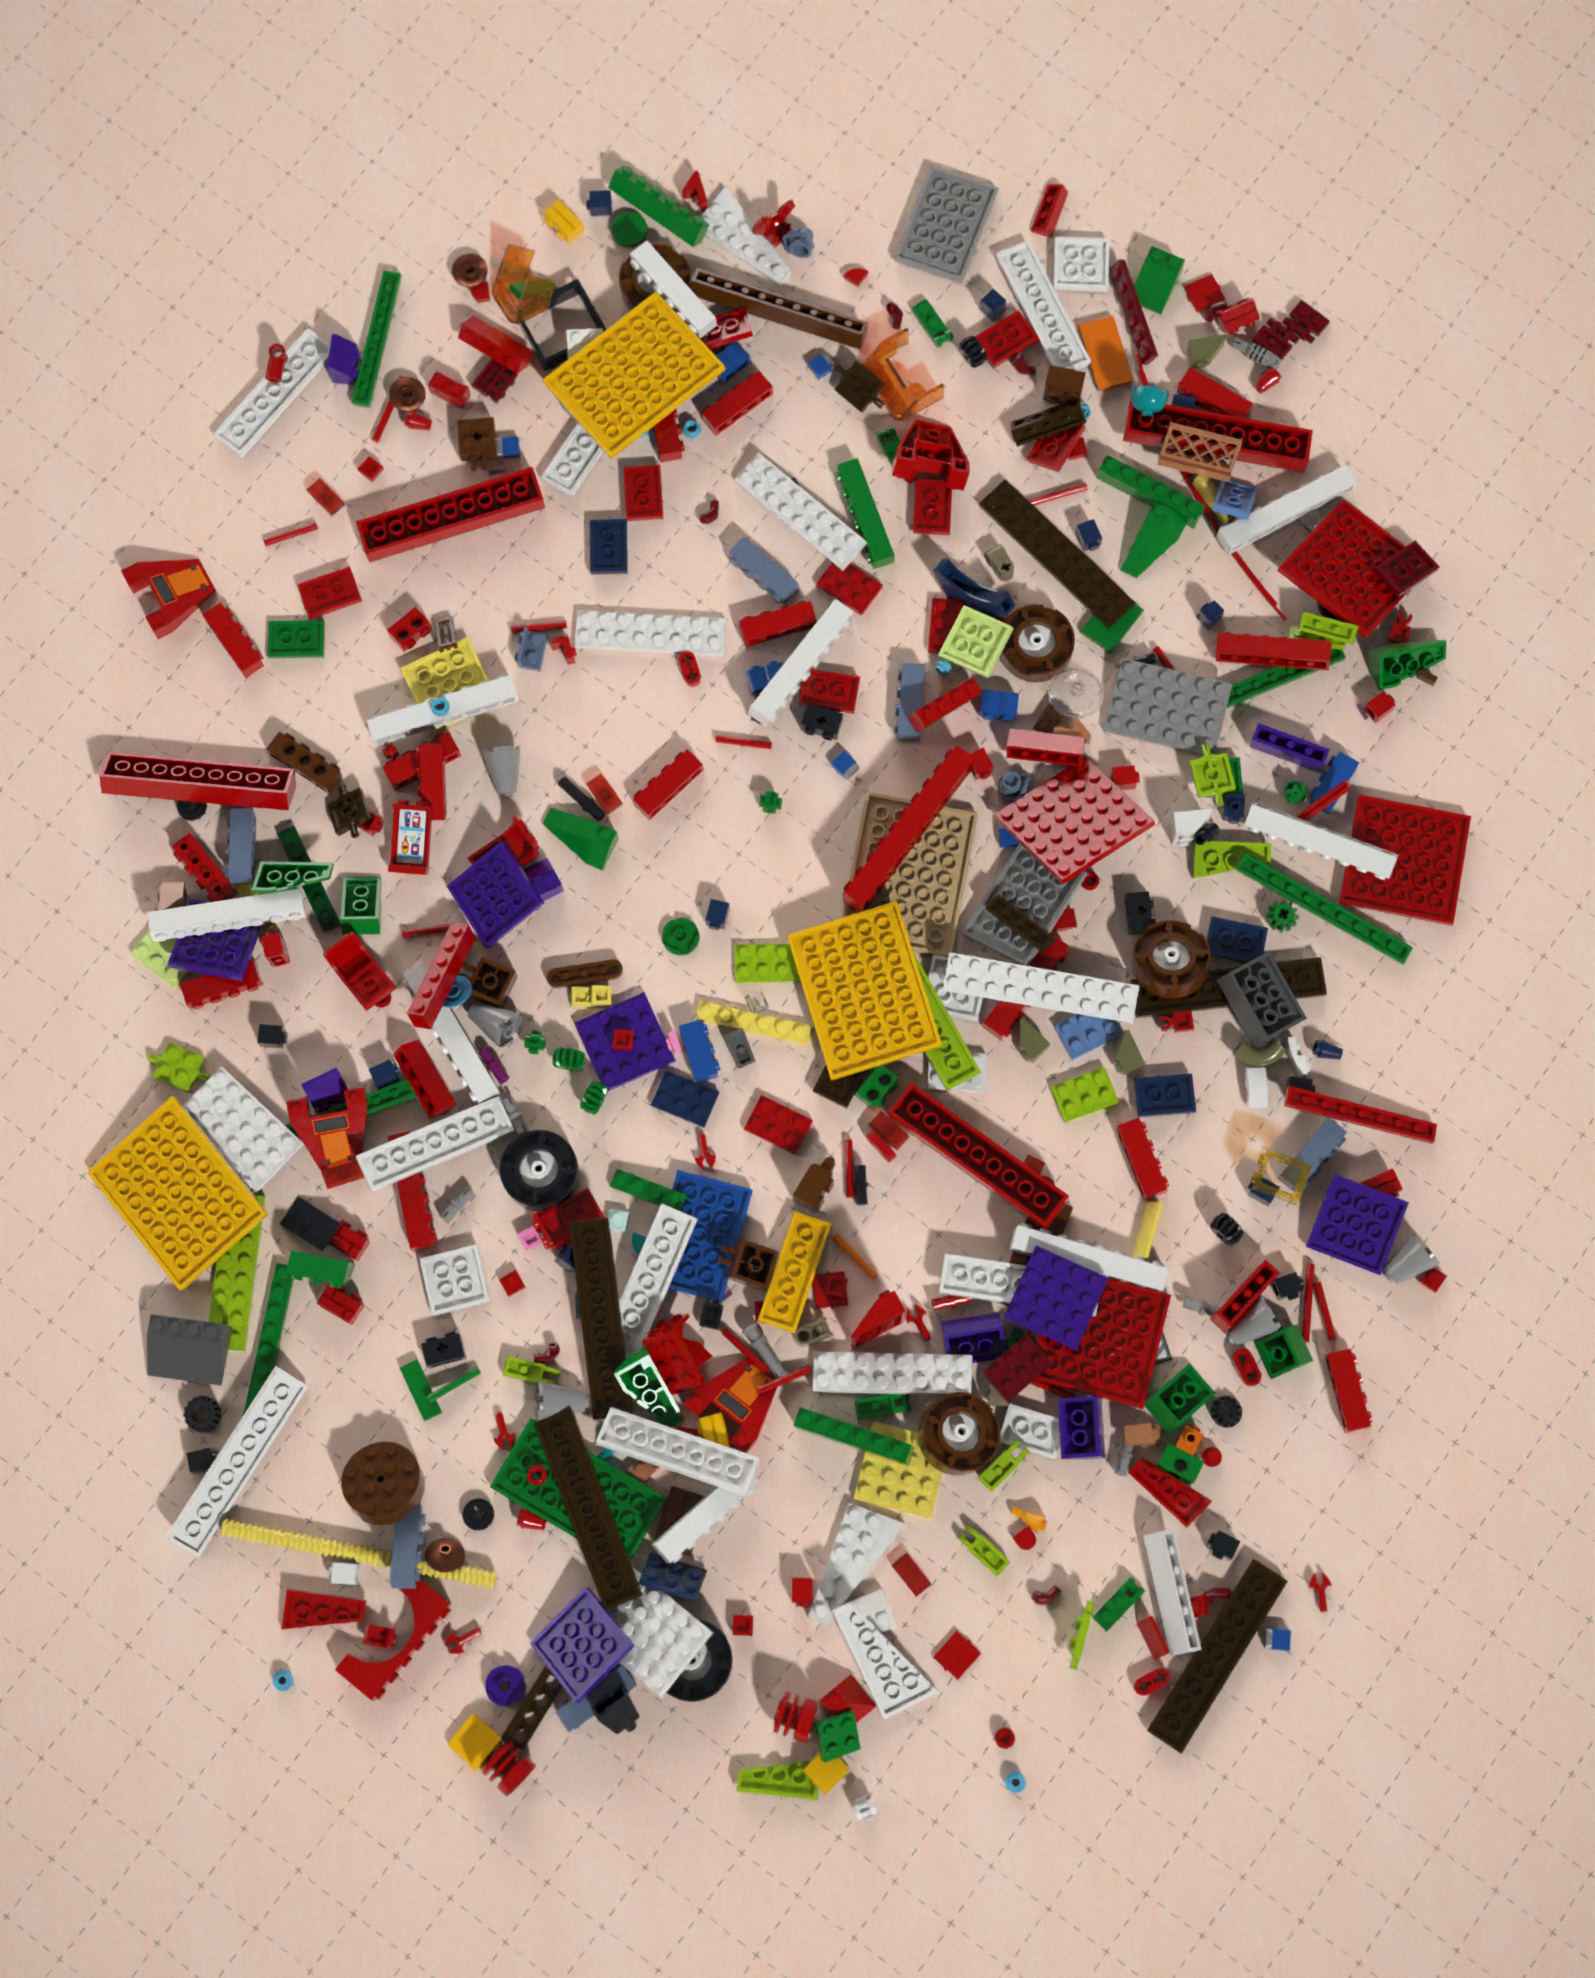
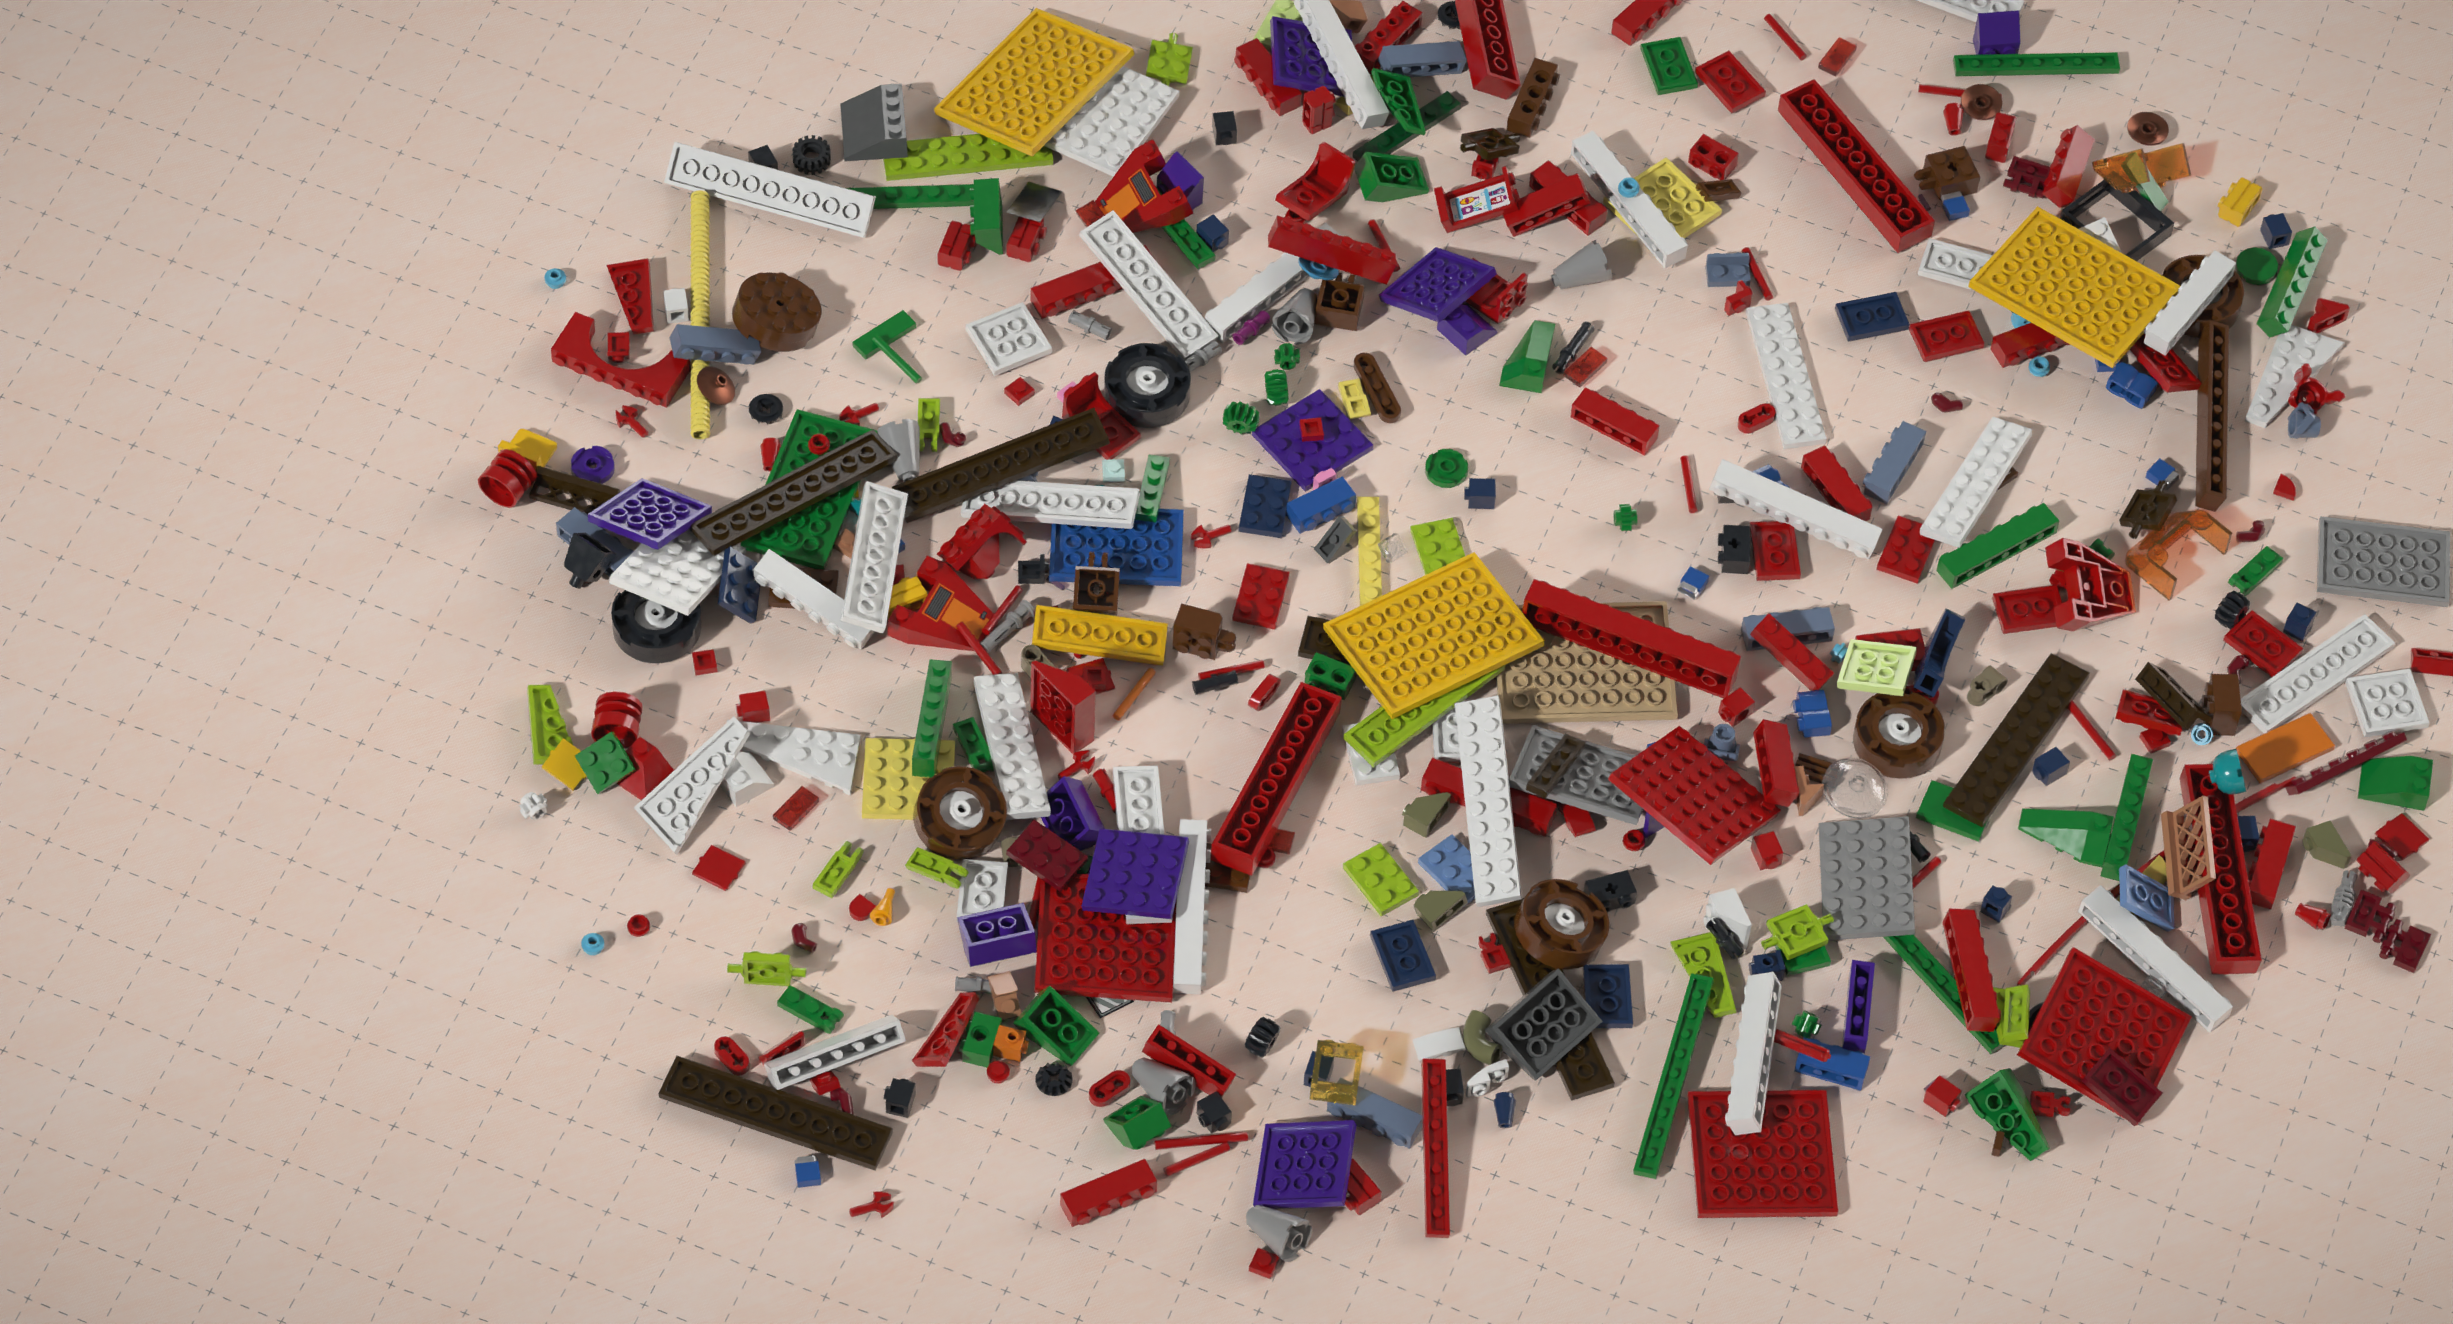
camera: 70 degrees right, 20 degrees down
(370, 469) = (1883, 88): red plate -> none
(390, 751) = (1570, 167): red plate -> none
(424, 1079) = (1217, 266): red brick -> none
(454, 1353) = (931, 343): black brick -> none
(481, 292) = (2127, 144): red tile -> none
(645, 1385) = (937, 524): green wedge -> none
(737, 403) = (2085, 401): red brick -> none
(889, 1131) = (1281, 697): clear red plate -> none
(1141, 1158) = (1321, 944): red brick -> none
(1147, 1229) = (1240, 968): light yellow slope -> none
(1289, 920) = (1652, 1036): green gear -> none

